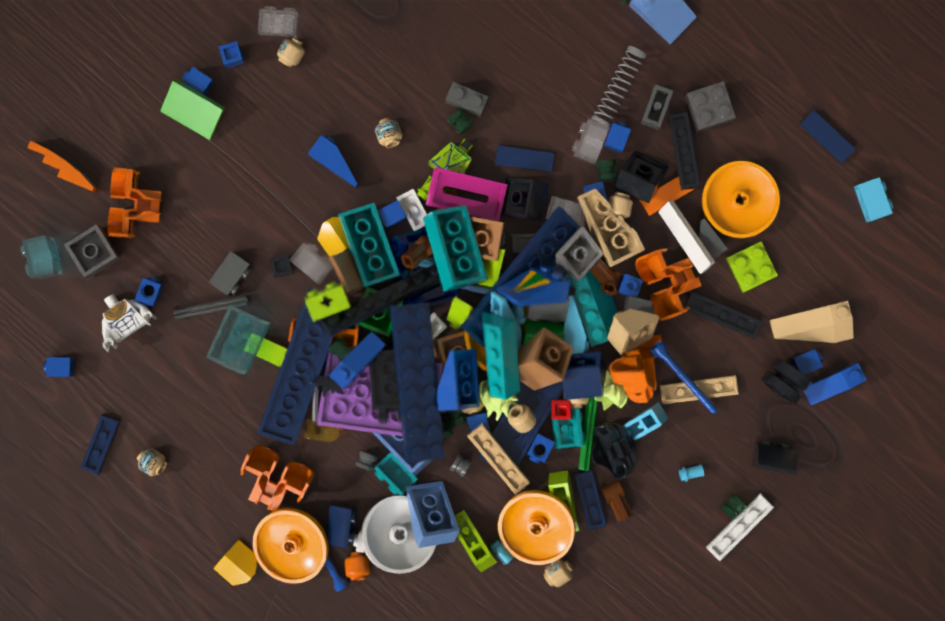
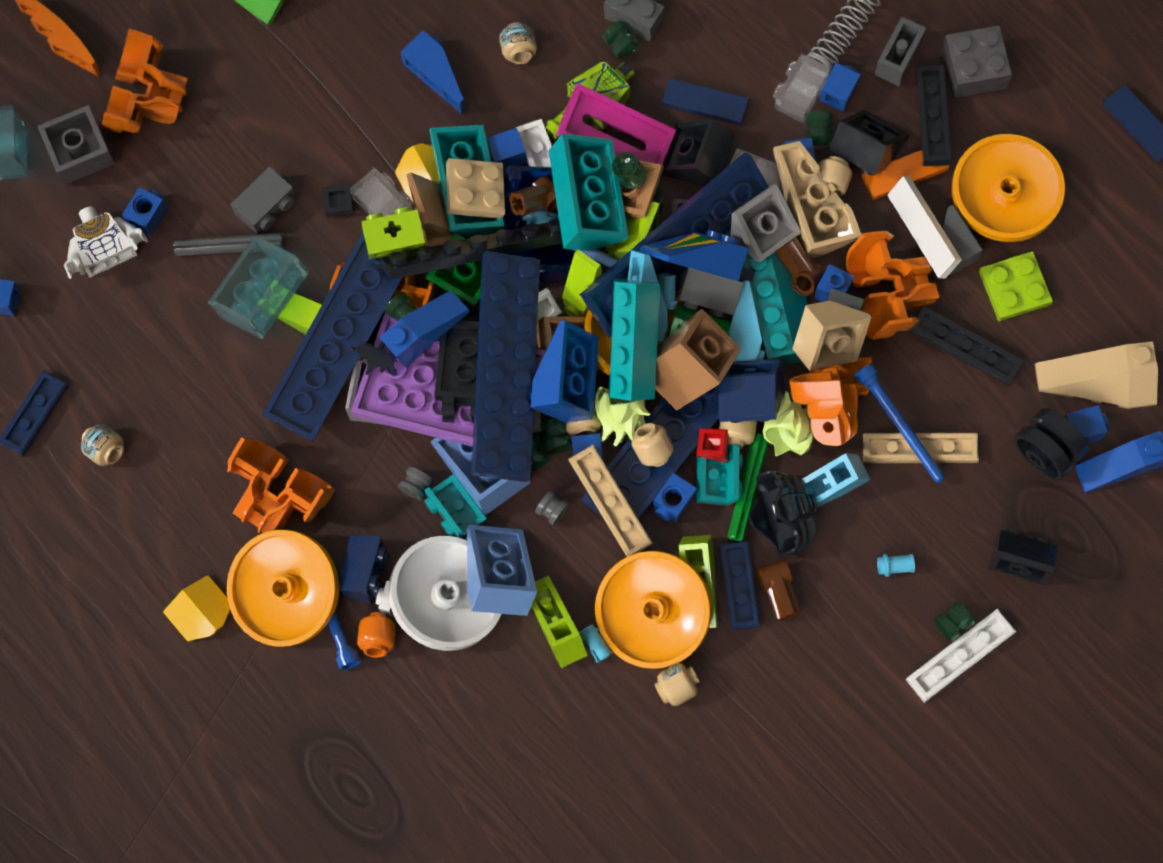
camera: 10 degrees right, 15 degrees down
(326, 434) = (366, 439): clear yellow plate -> none
(376, 253) = (475, 188): none -> tan plate
(477, 230) = (629, 170): none -> clear green wheel

